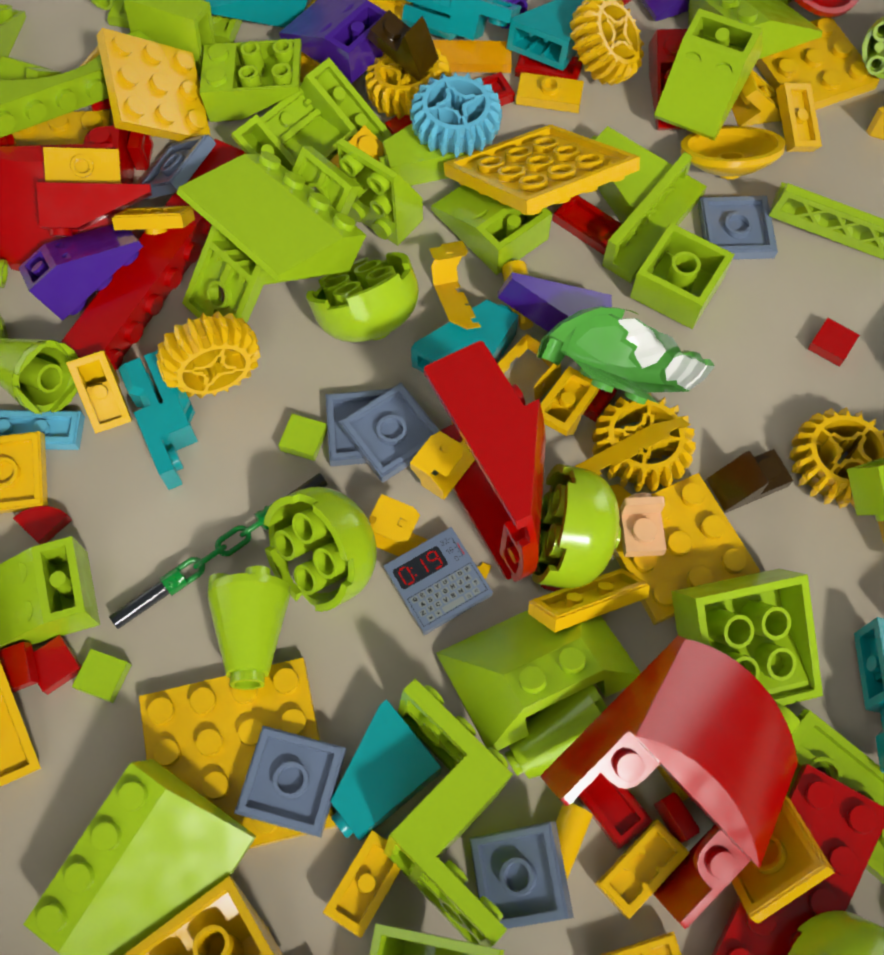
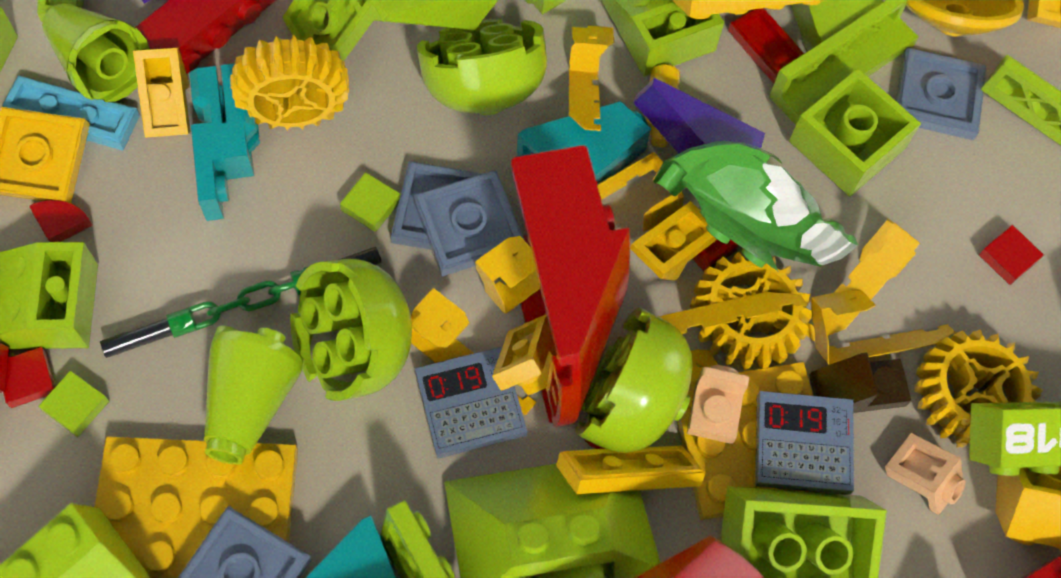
camera: 10 degrees right, 0 degrees up
(475, 529) = (526, 357): none -> yellow slope
(722, 538) = (804, 443): none -> tile
(726, 412) = (857, 301): none -> yellow piece
(734, 374) = (880, 260): none -> yellow piece
(825, 534) = (928, 472): none -> light nougat bracket

